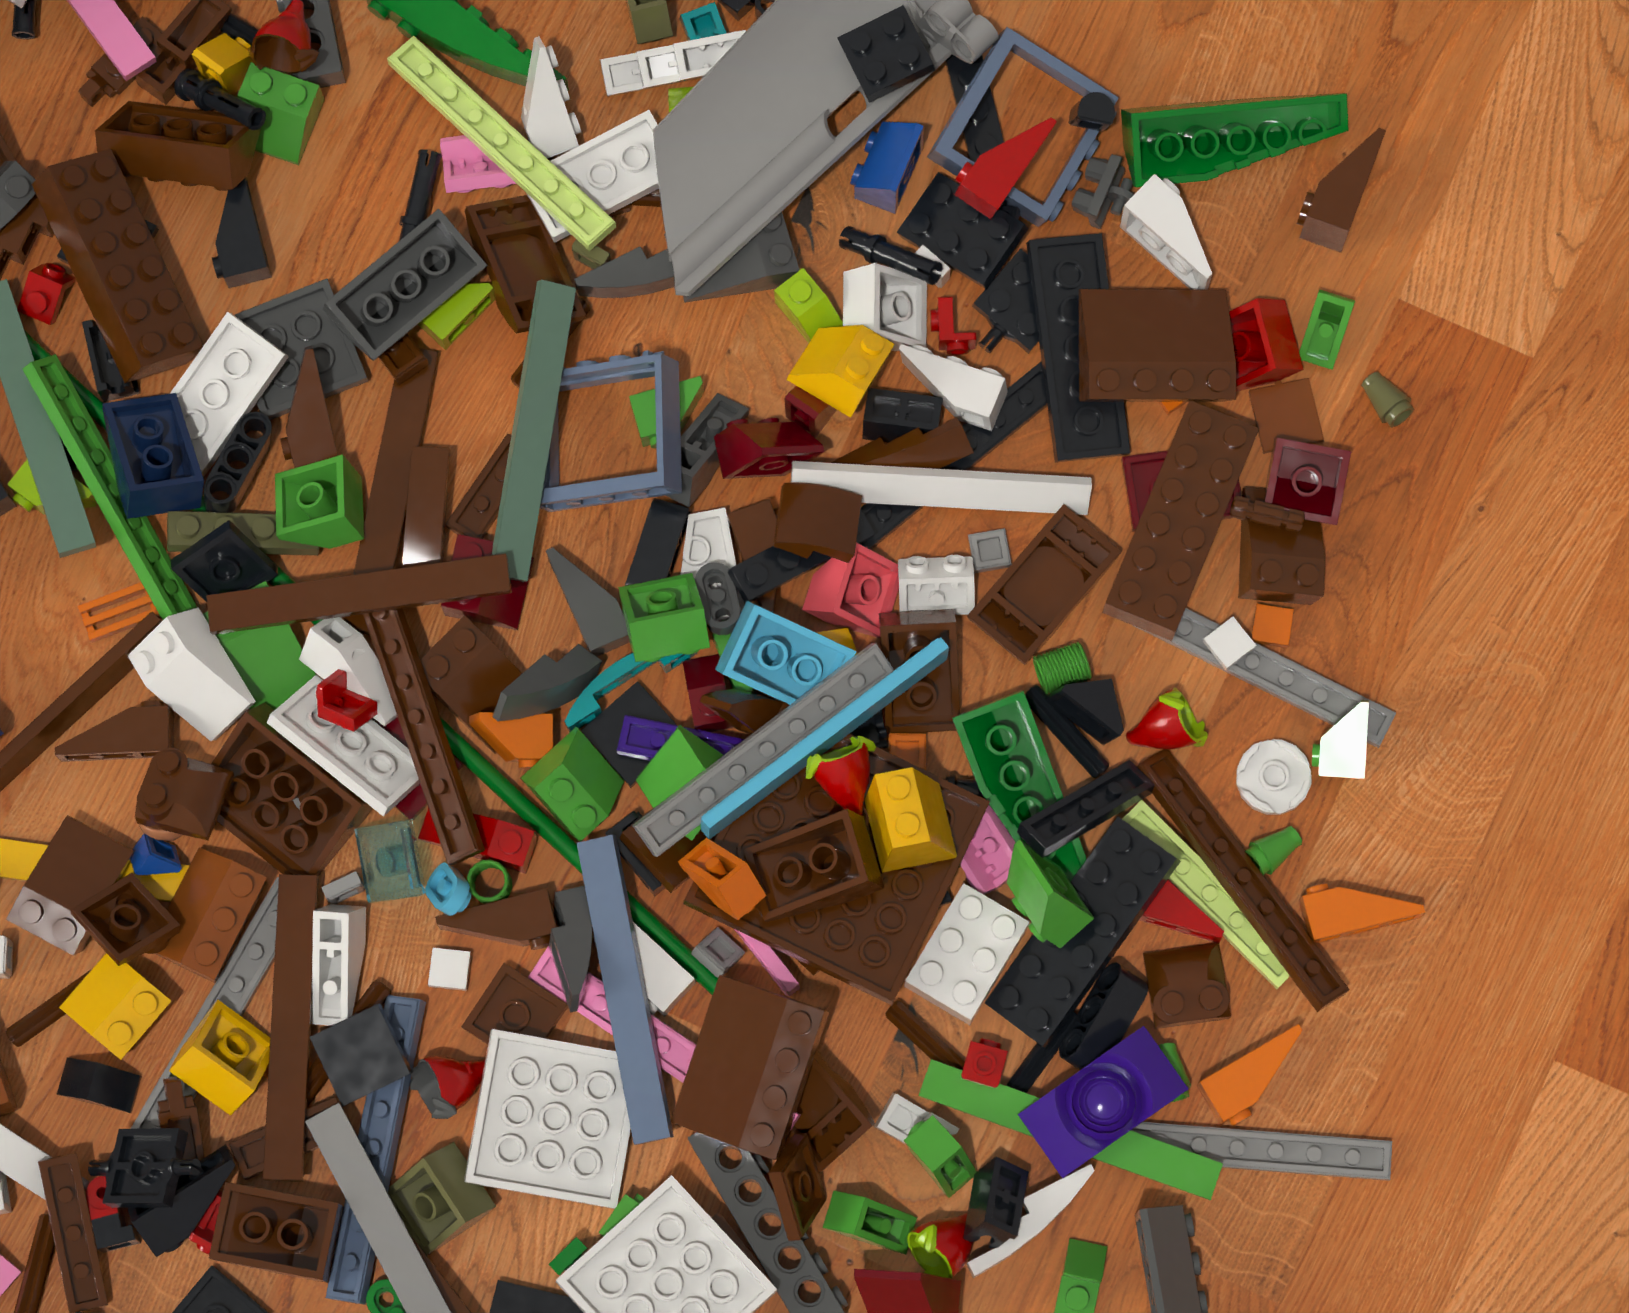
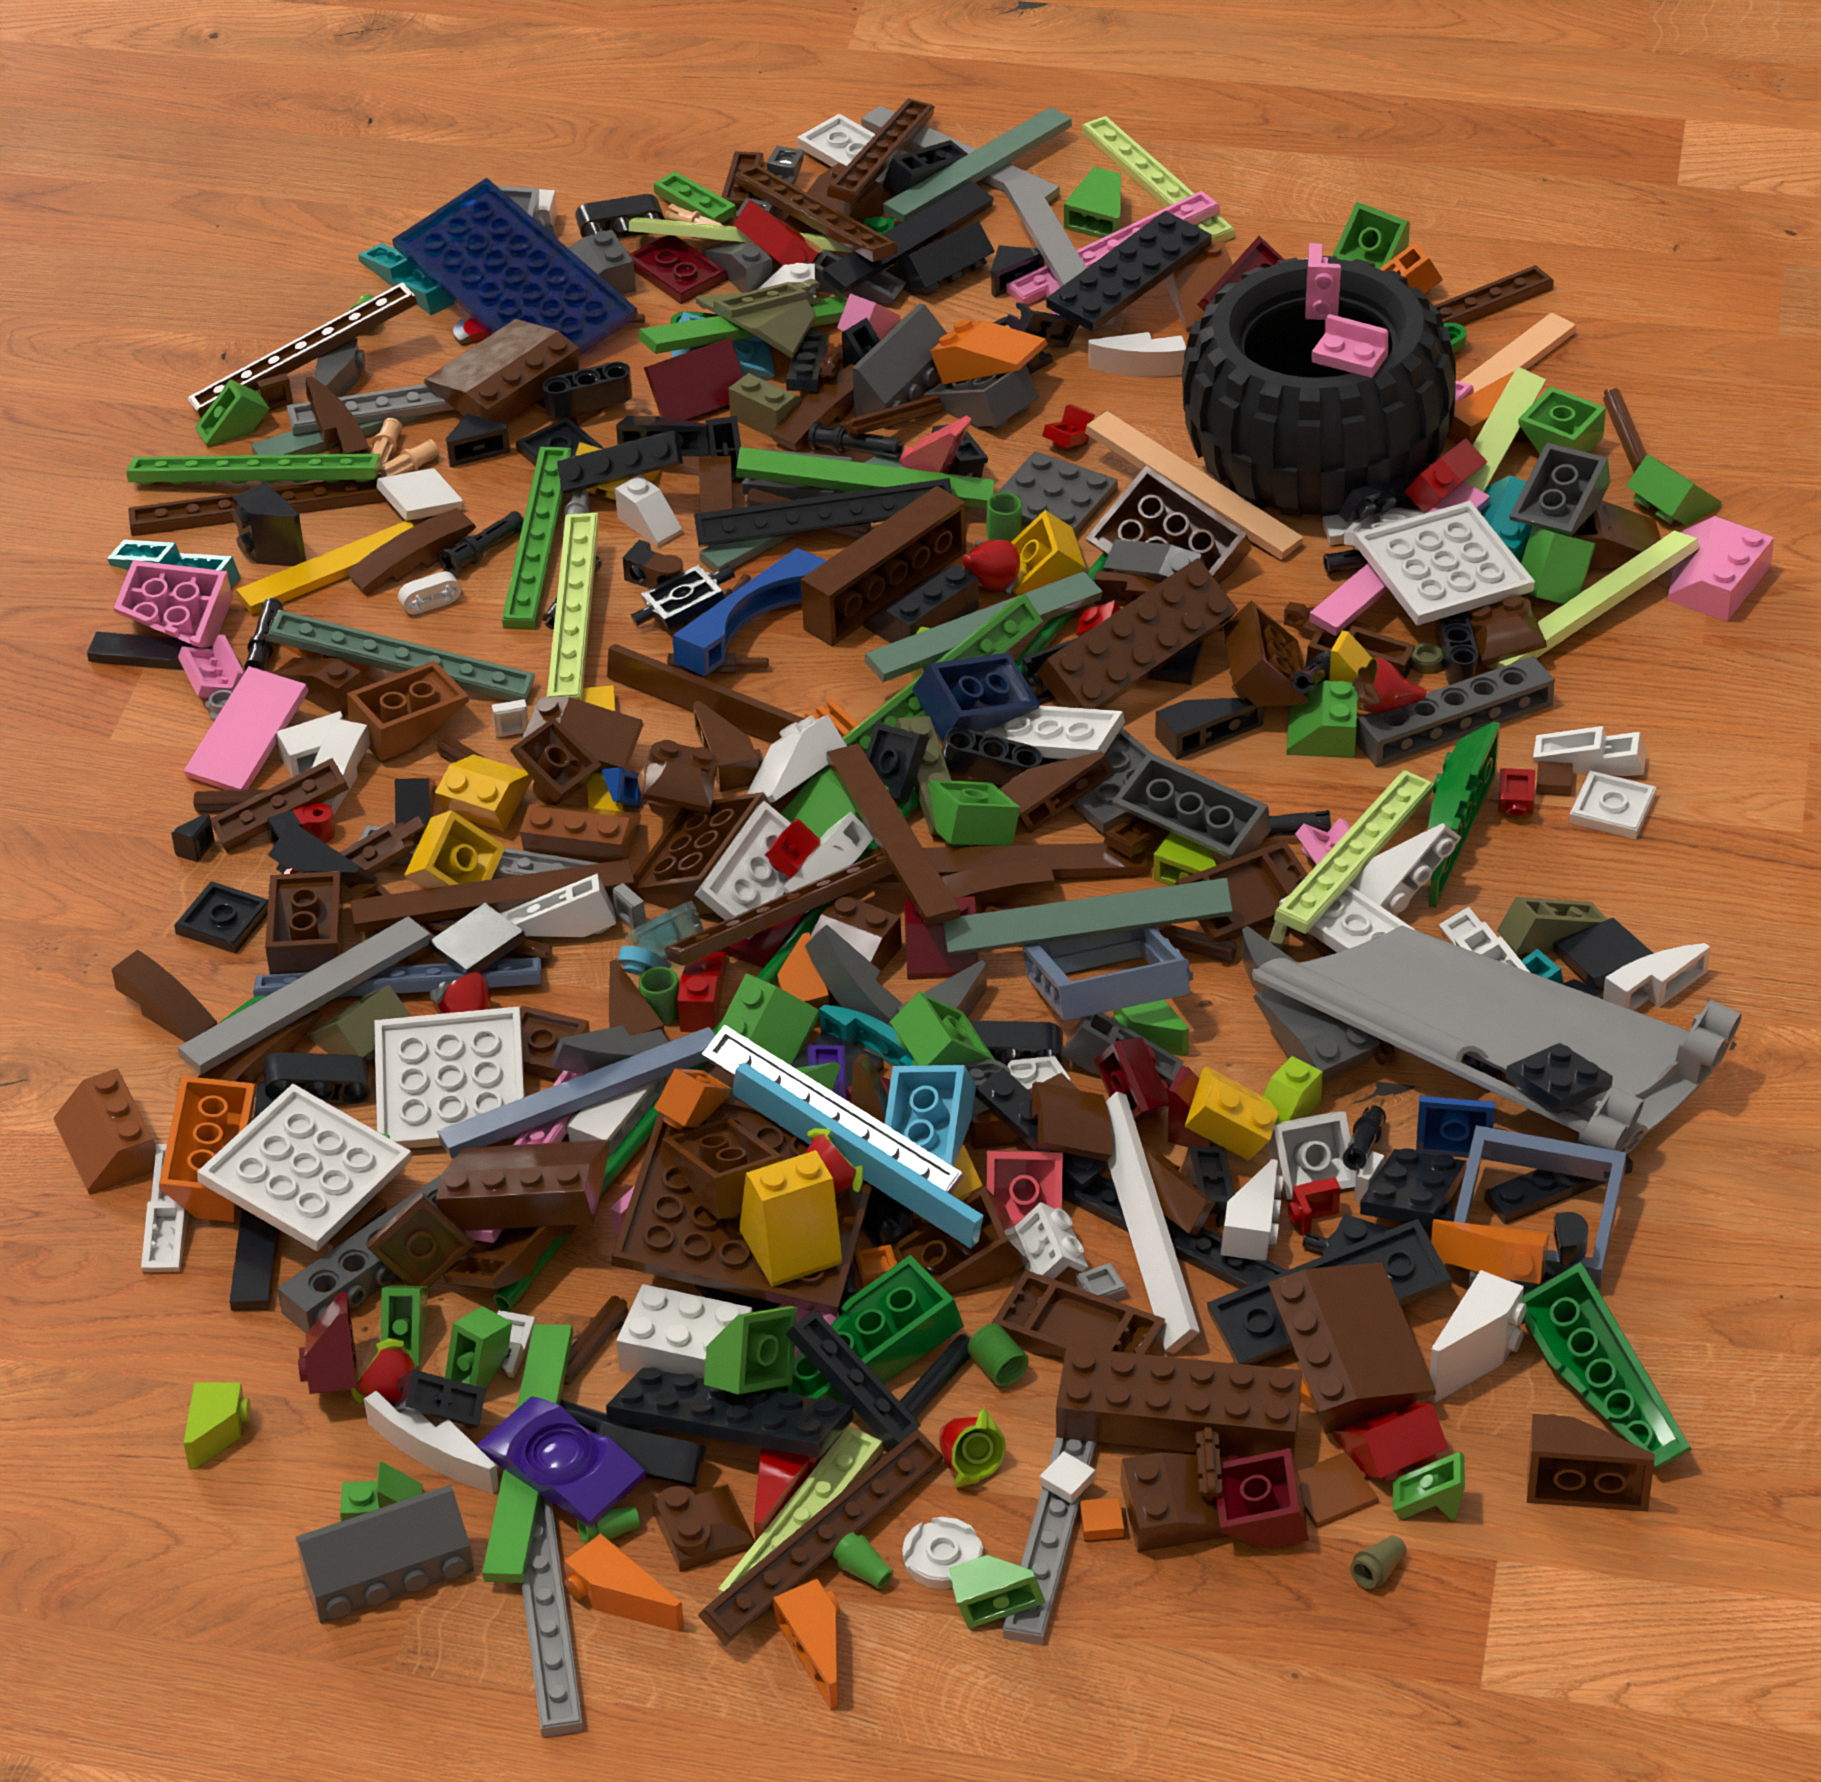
camera: 75 degrees right, 35 degrees down
(145, 1168) = (341, 819): black plate -> none
(449, 969) = (575, 995): white tile -> none
(510, 1256) = (326, 1076): none -> black beam
(718, 952) = (631, 1162): light grey tile -> none
(984, 1063) = (580, 1363): red bracket -> none
(998, 169) = (1477, 1174): red slope -> none
(1082, 184) = (1495, 1250): none -> orange slope
(1090, 707) = (967, 1380): black slope -> none

